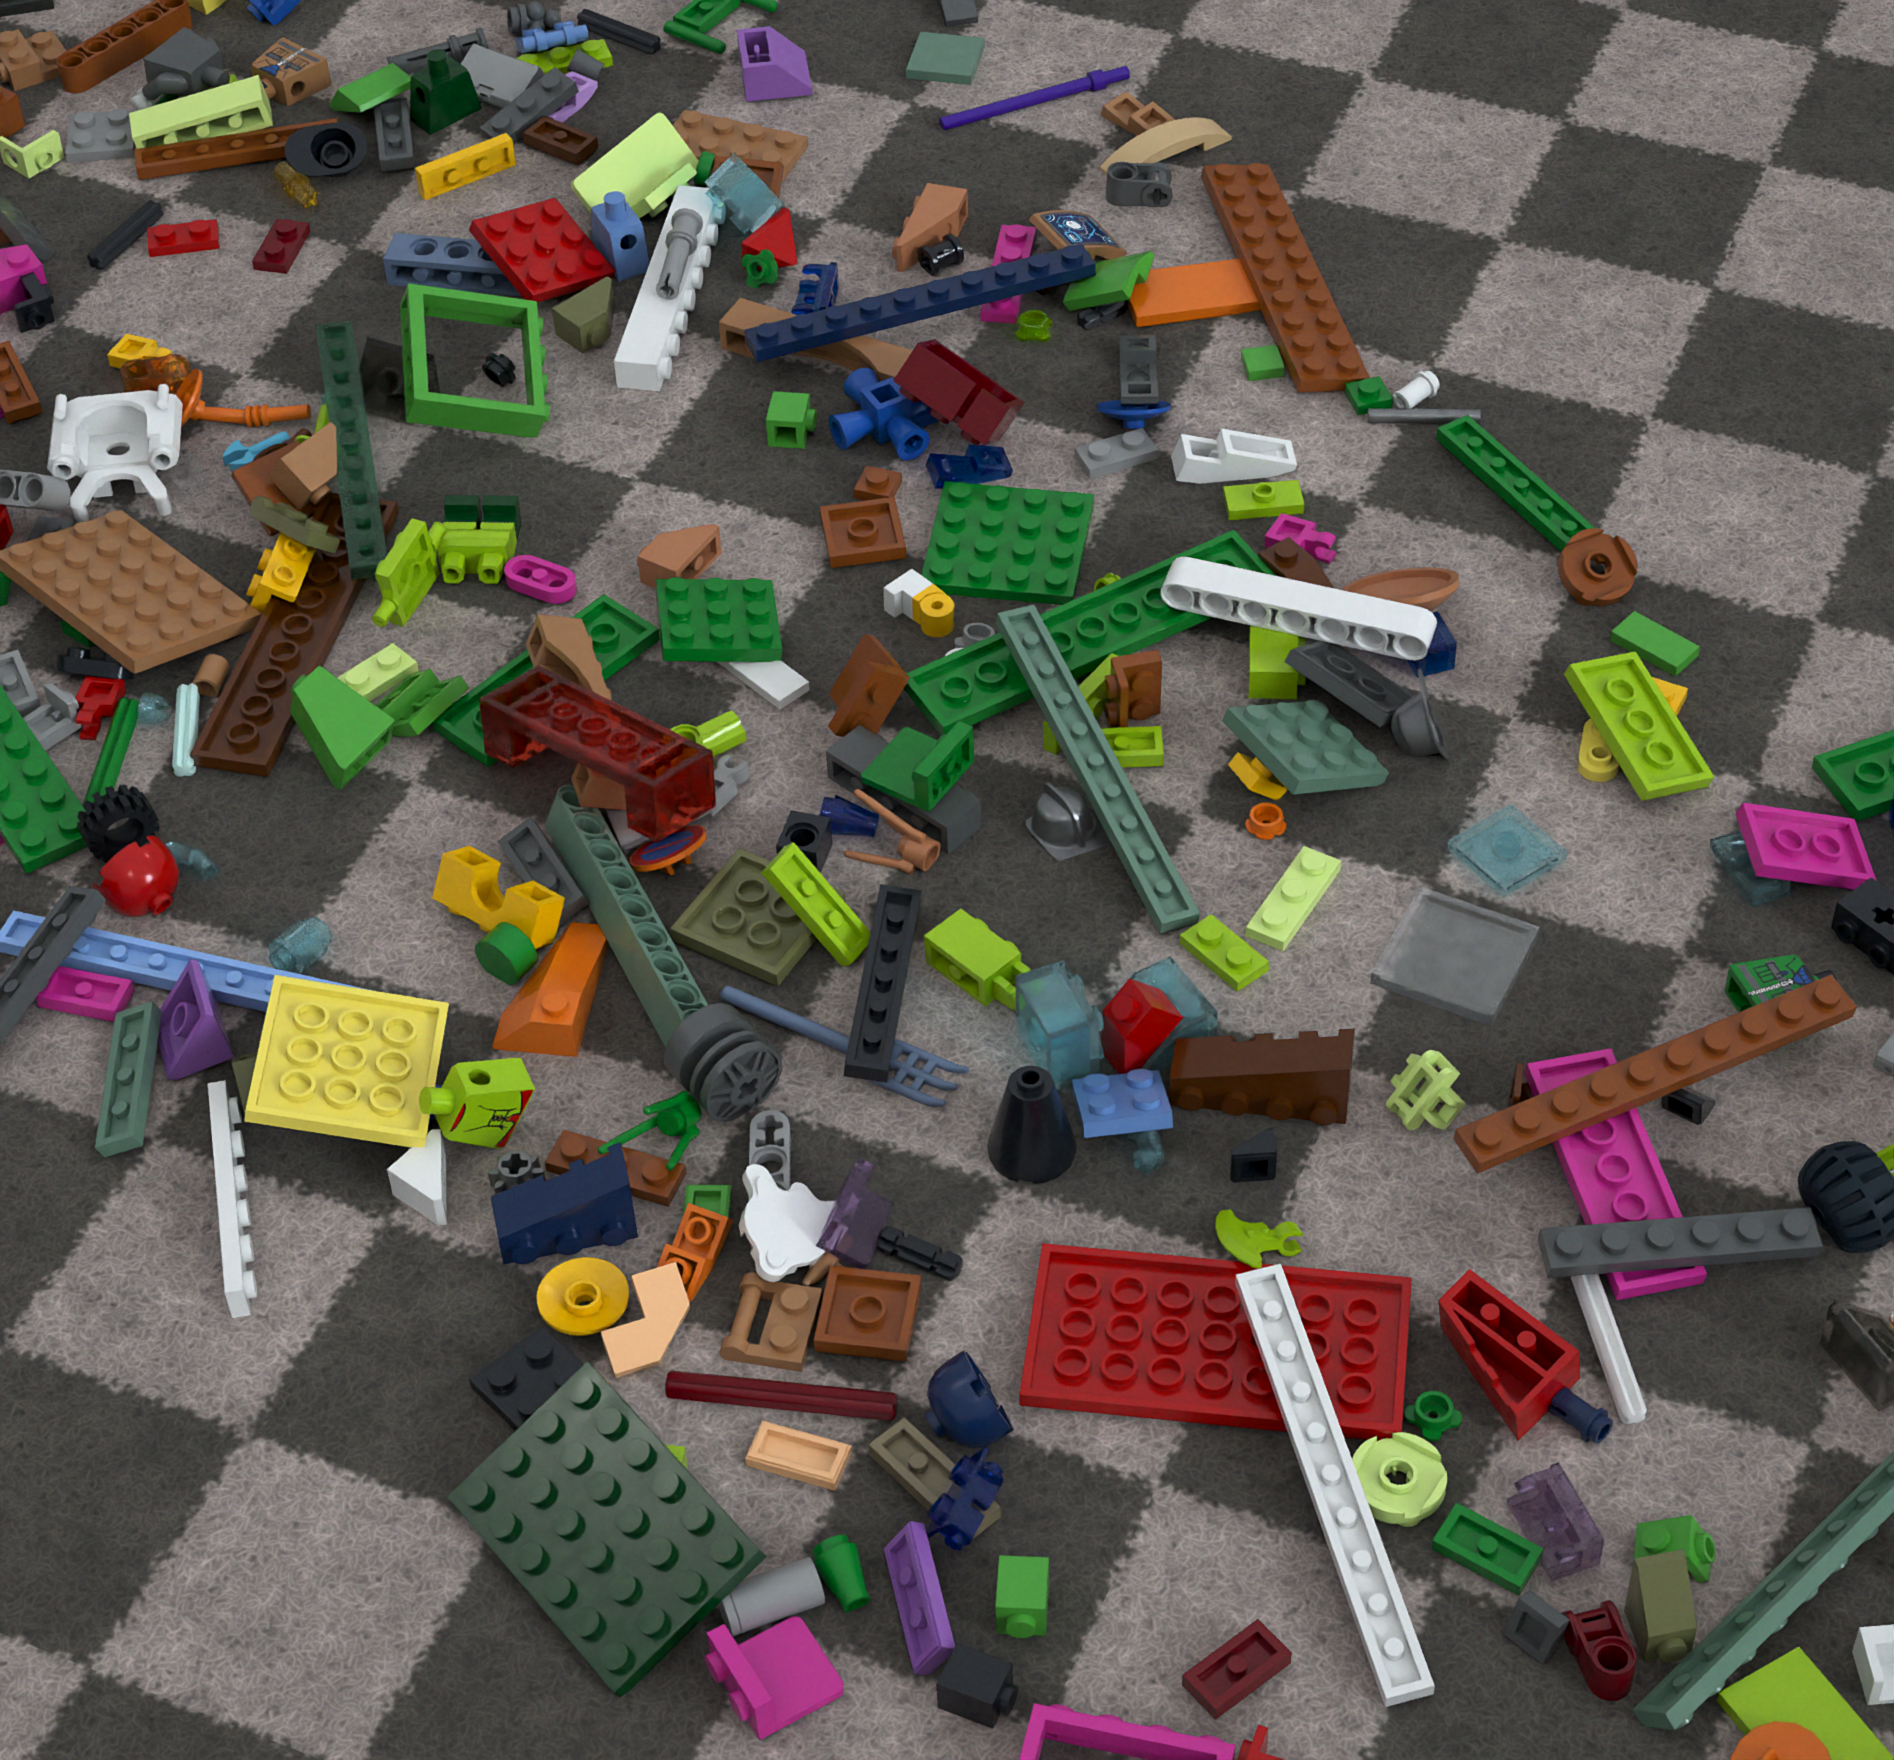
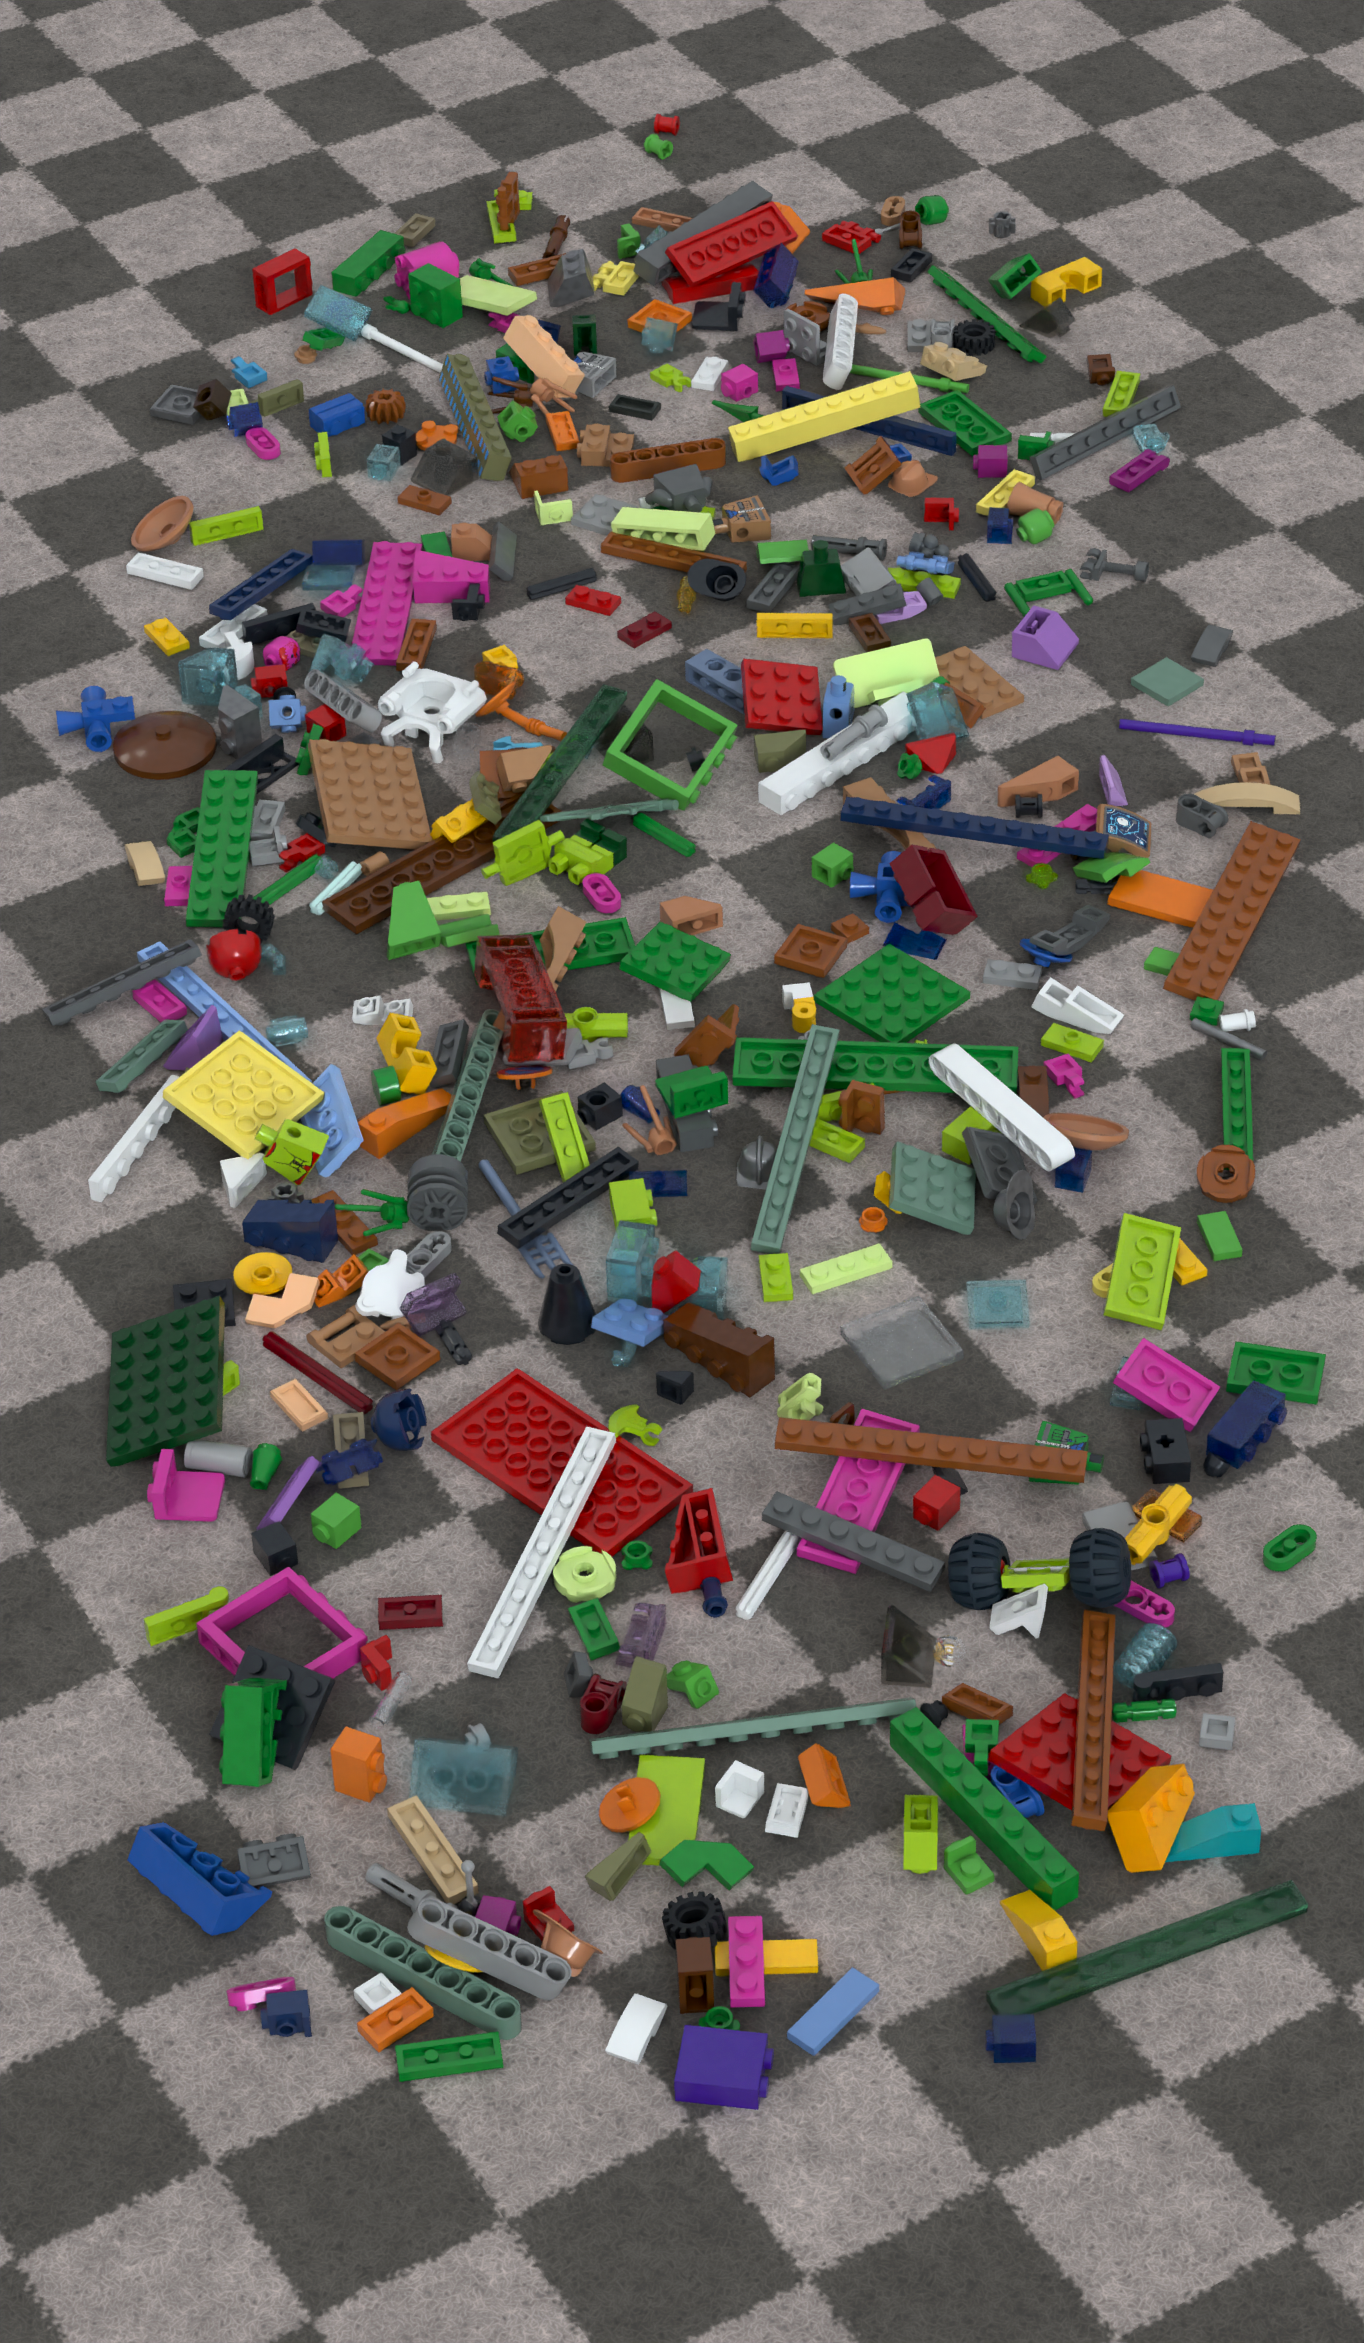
camera: 35 degrees right, 5 degrees down
(388, 866) = (375, 1012): none -> white slope
(458, 475) = (611, 810): none -> sand green animal
(489, 1028) = (335, 1118): none -> light blue plate
(545, 474) = (664, 834): none -> green axle
(978, 897) = (663, 1183): none -> clear blue plate
(1003, 191) = (1111, 783): none -> lavender slope
(1714, 1136) = (936, 1502): none -> red brick

